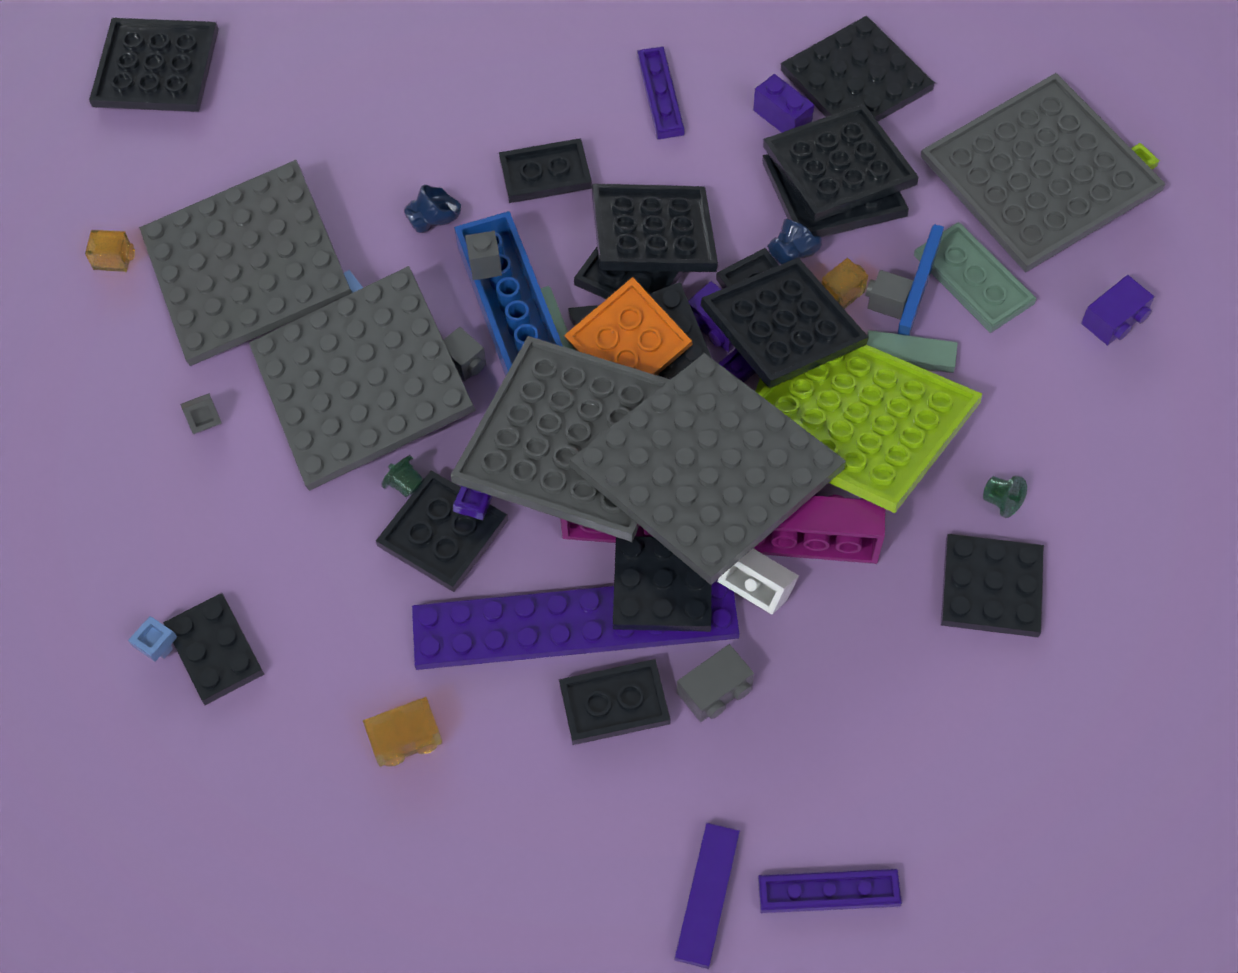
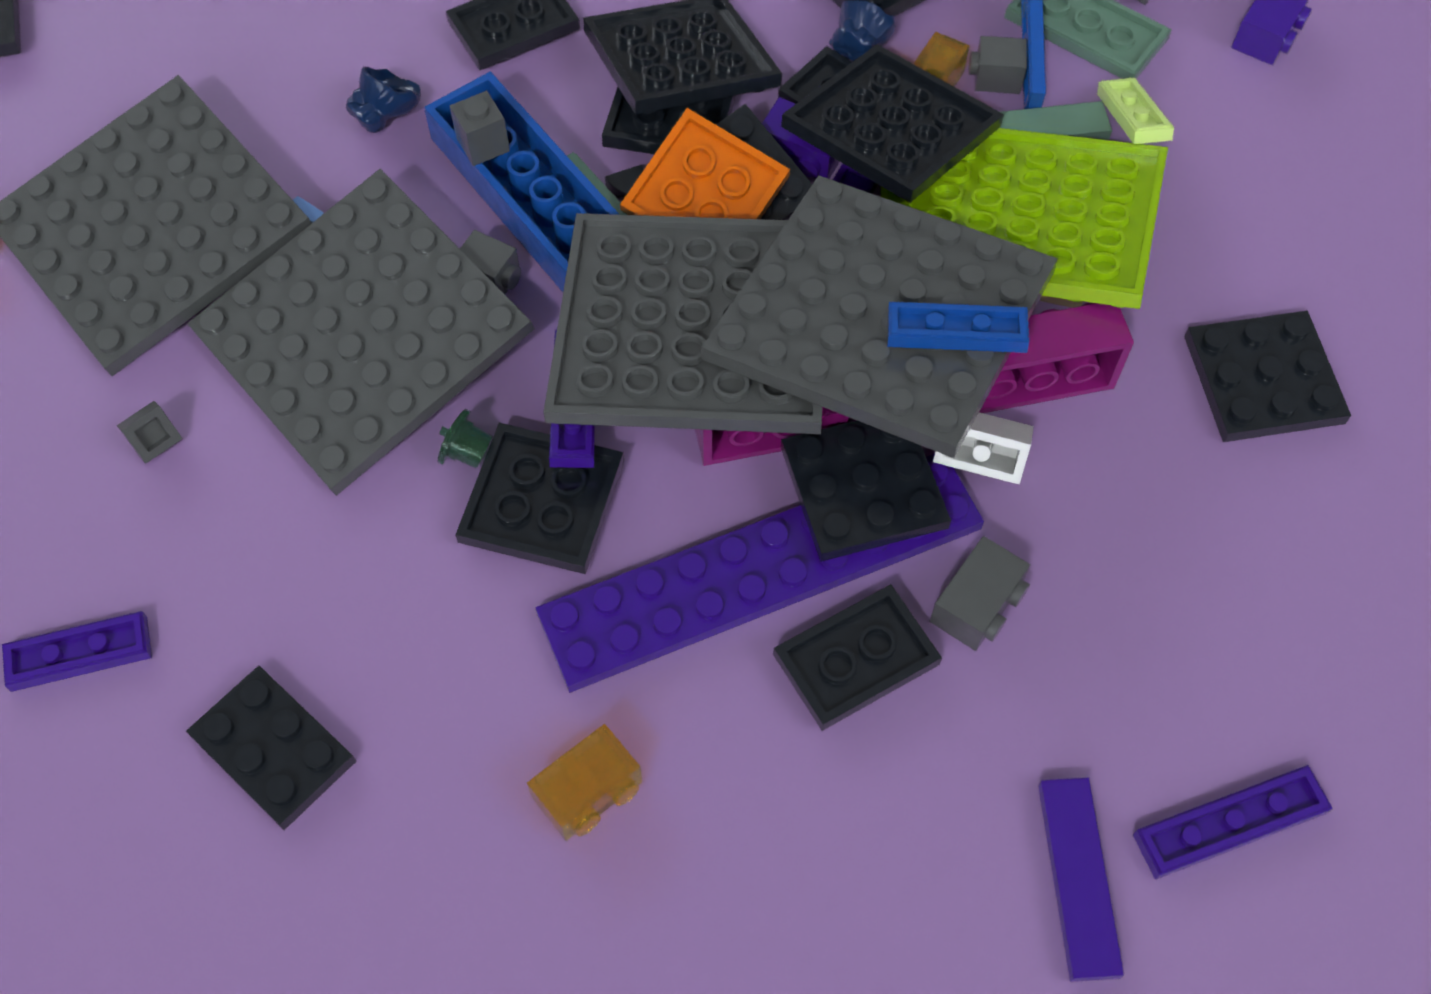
camera: 20 degrees left, 0 degrees up
(112, 549) = (76, 651): none -> dark purple tile
(153, 639) = (179, 758): medium blue tile -> none
(747, 493) = (958, 327): none -> blue tile
(974, 357) = (1135, 111): none -> yellowish green tile
(1006, 494) = (1238, 261): piece -> none

